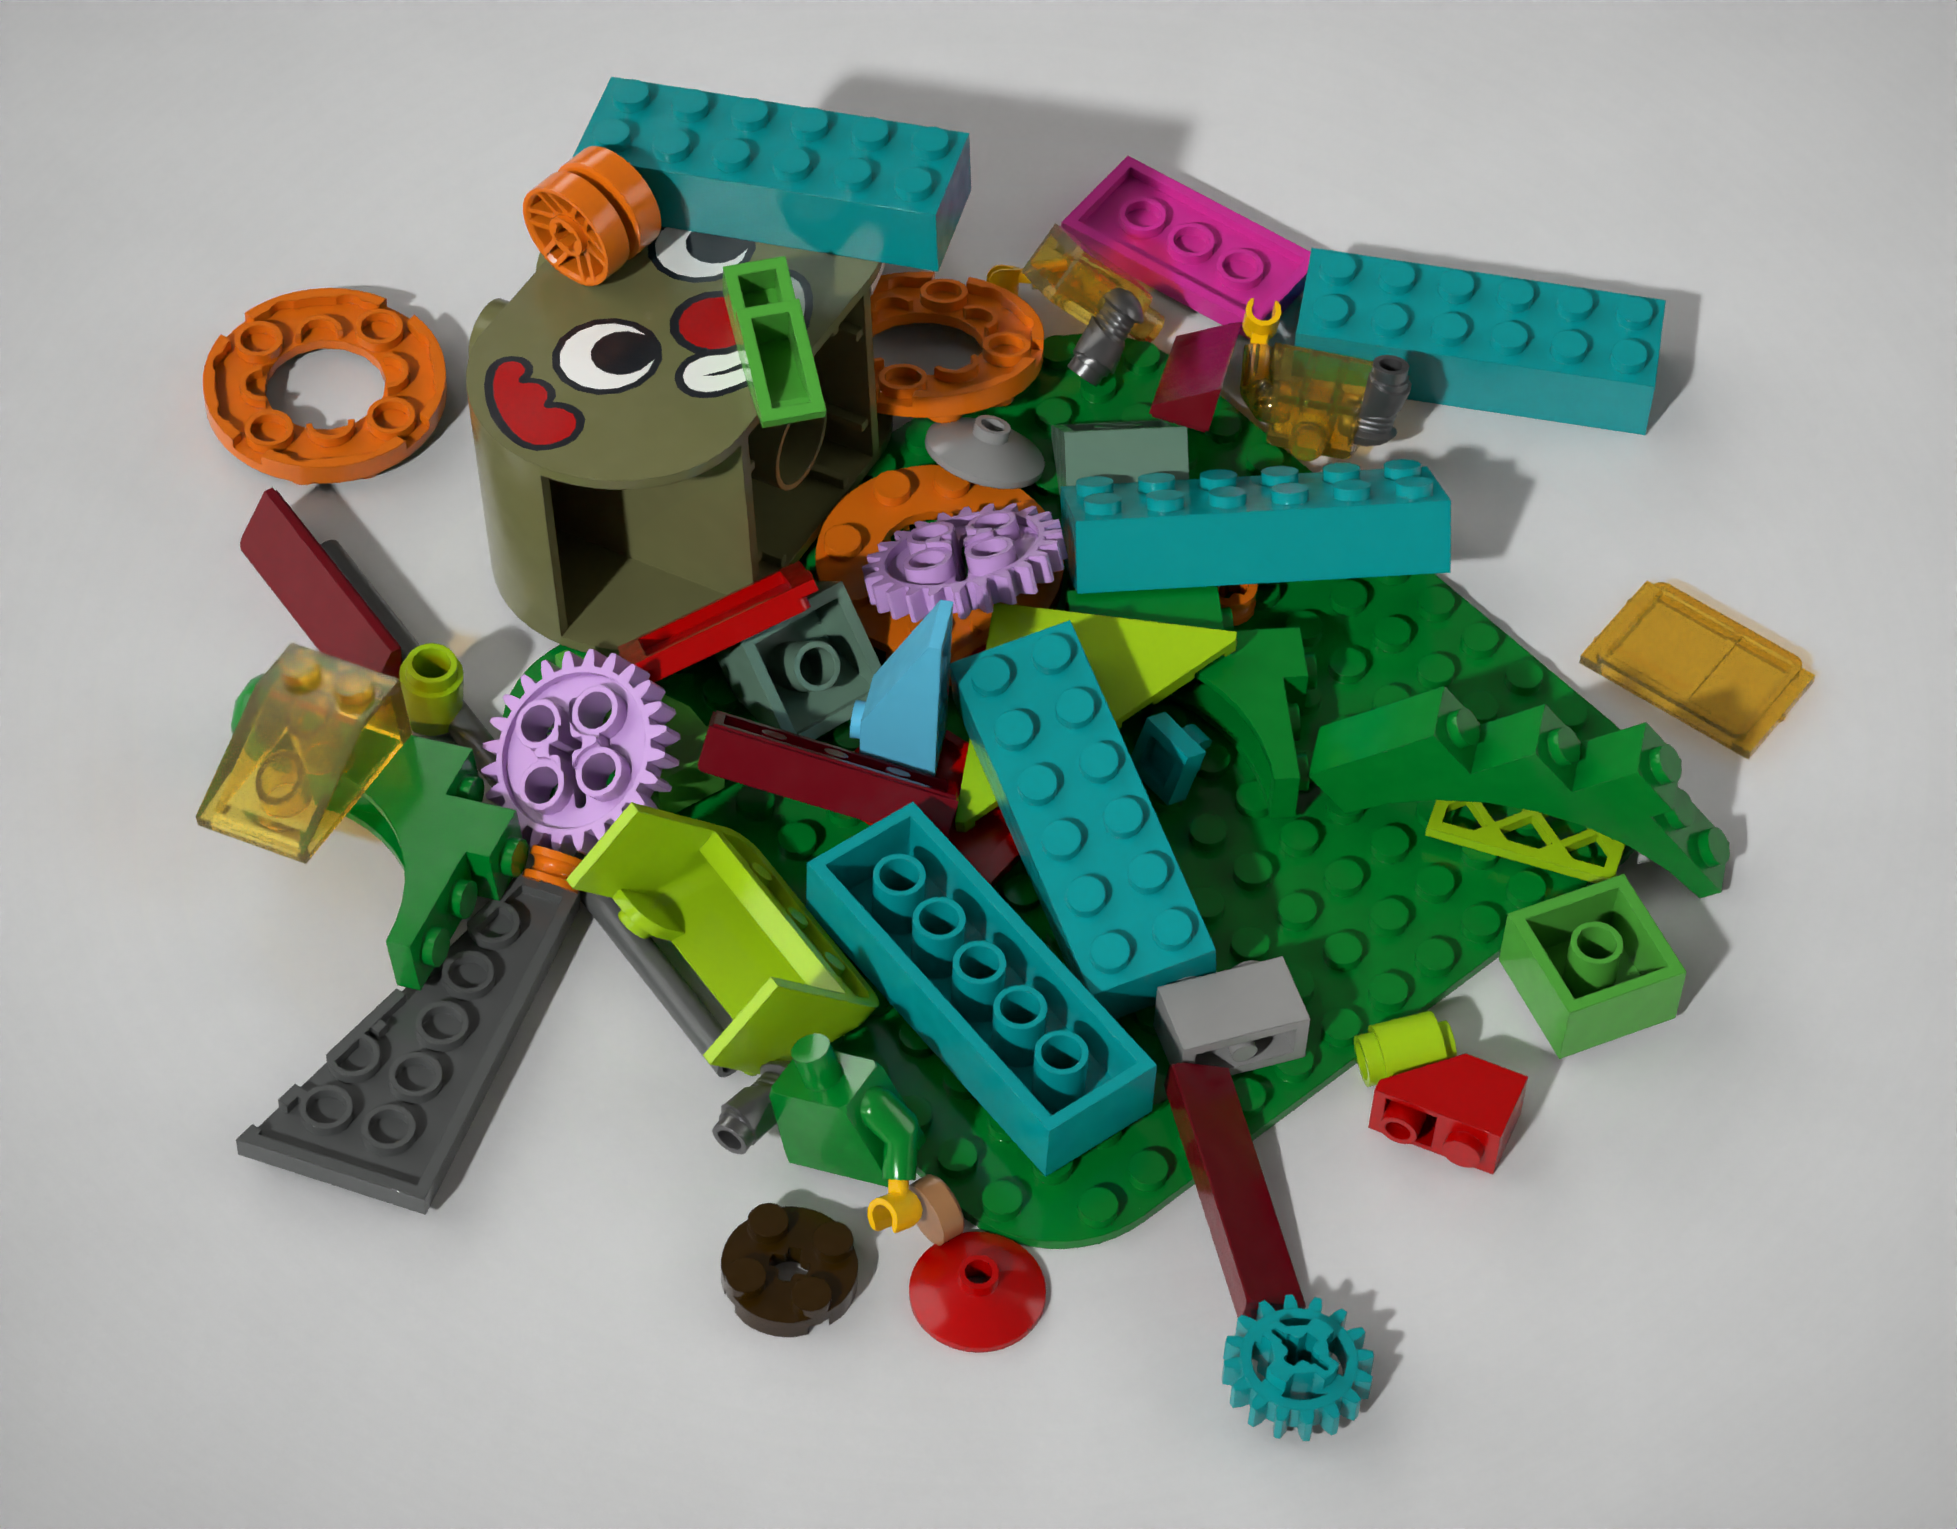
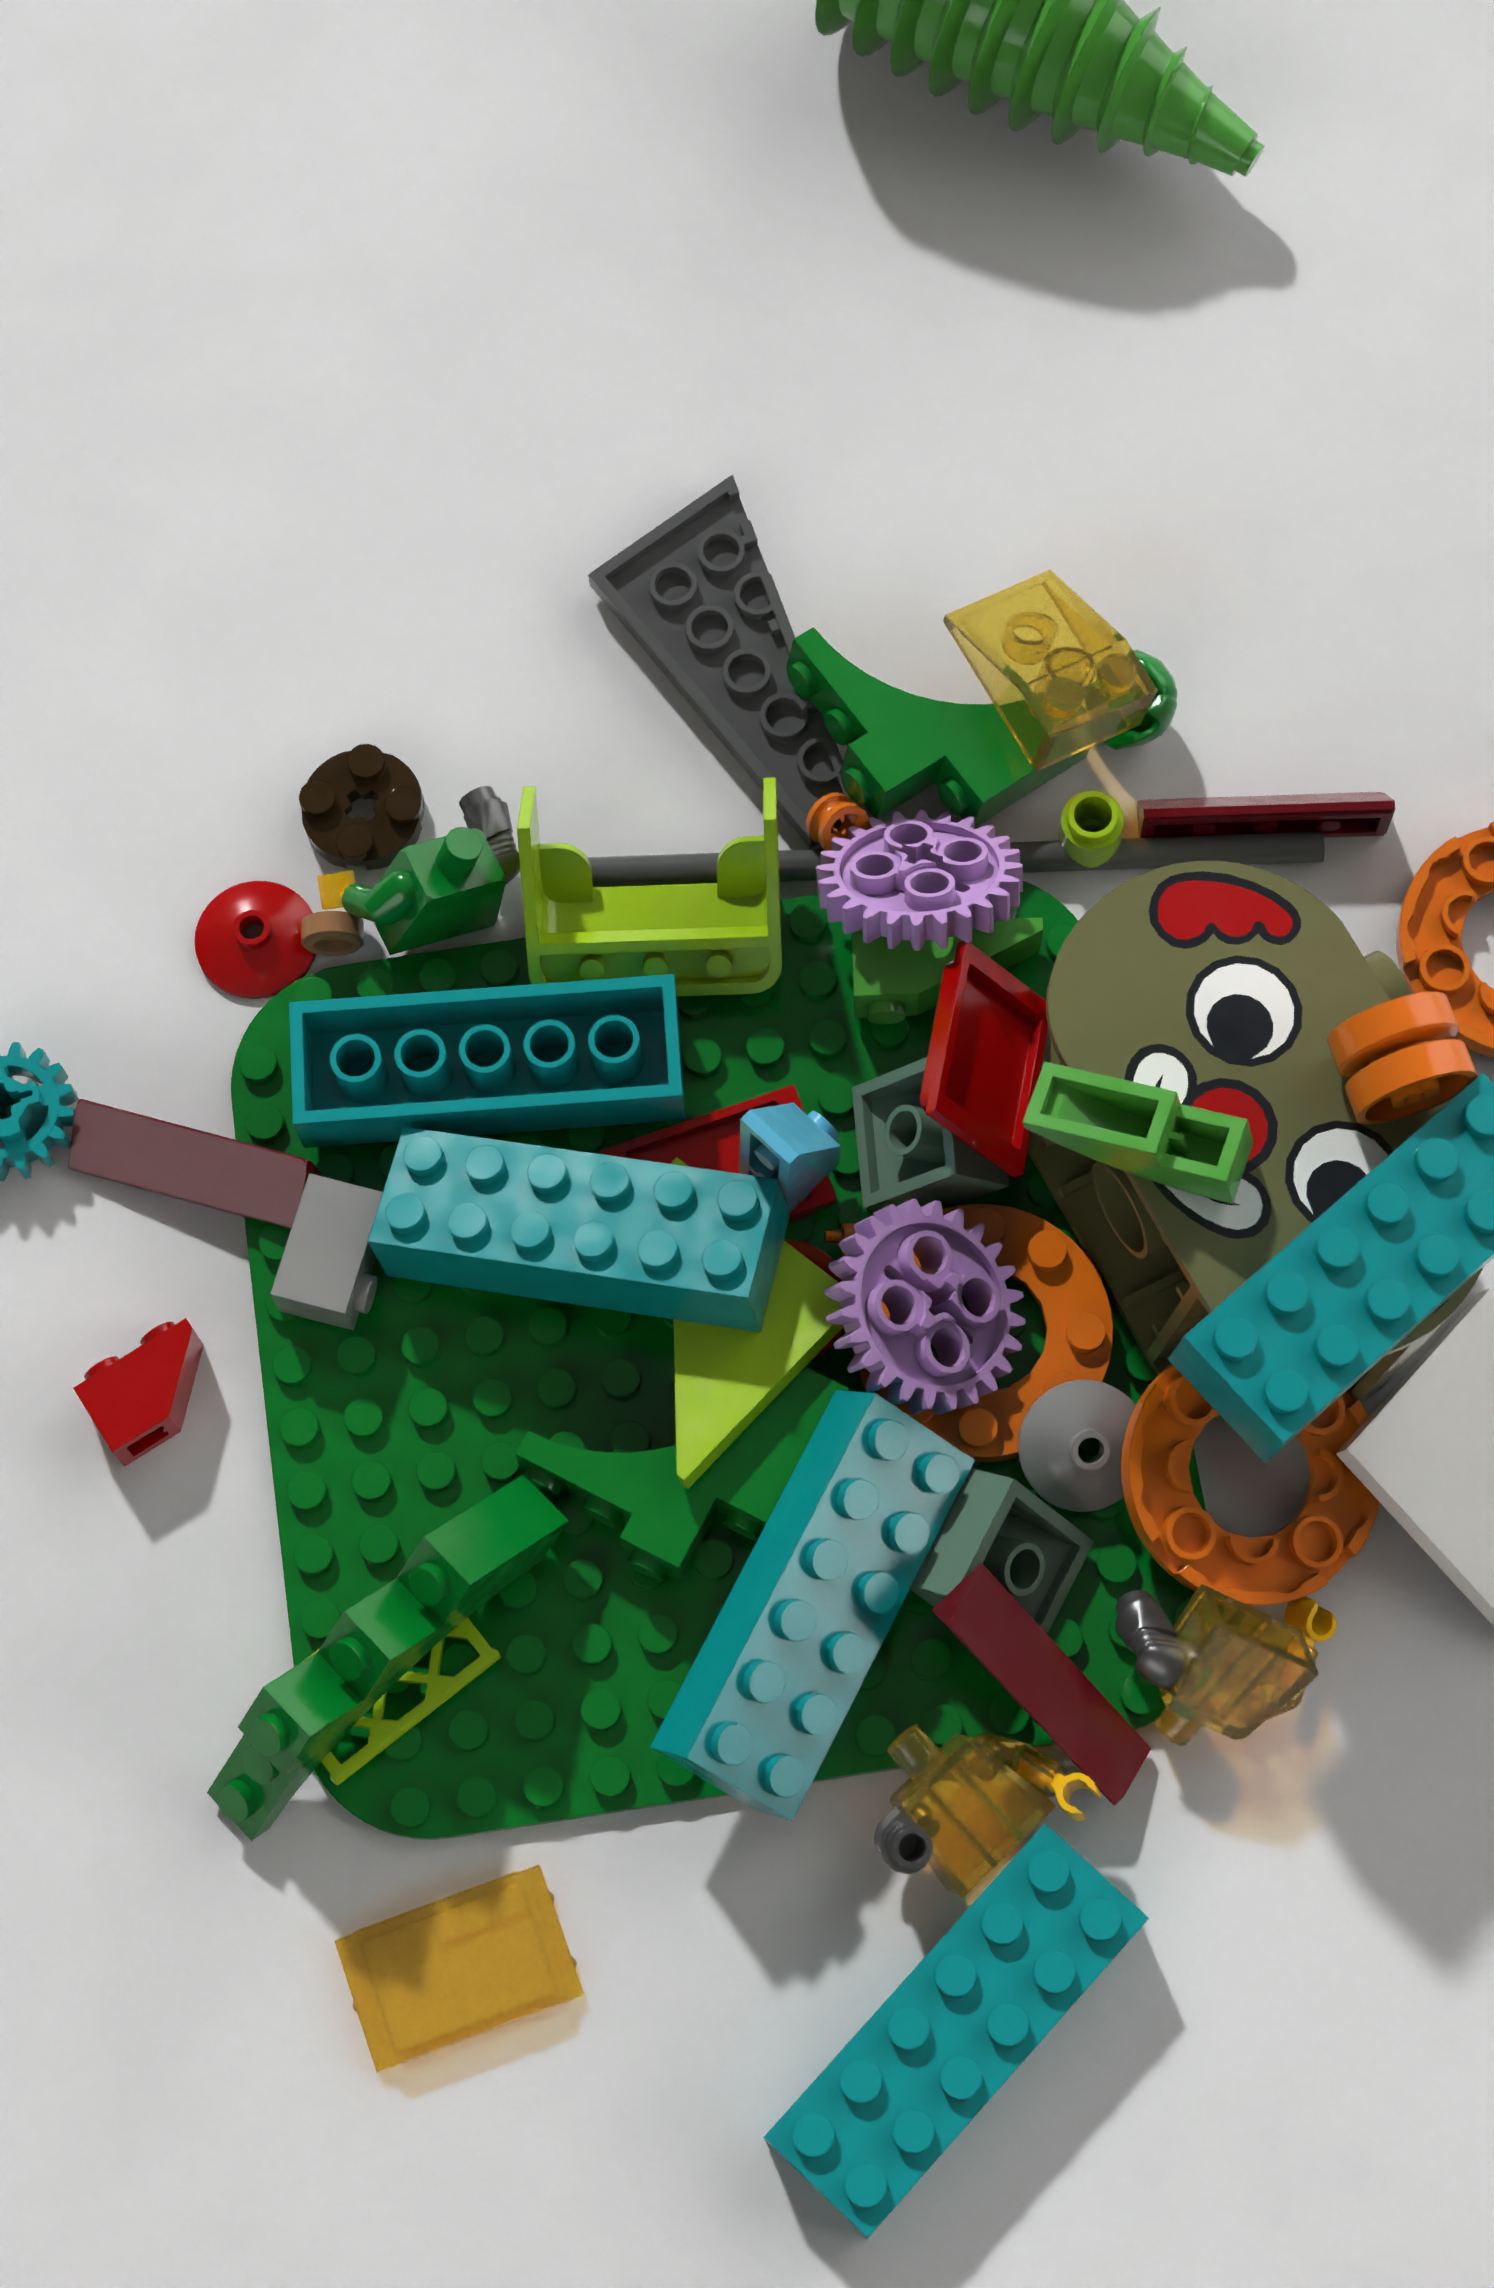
camera: 130 degrees right, 20 degrees up
(821, 772) = (783, 1062): dark red slope -> none
(1169, 756) = (630, 1381): teal tile -> none
(1188, 245) = (1254, 1835): dark pink plate -> none
(1402, 1046) = (228, 1394): lime brick -> none
(1592, 966) = (187, 1594): bright green brick -> none

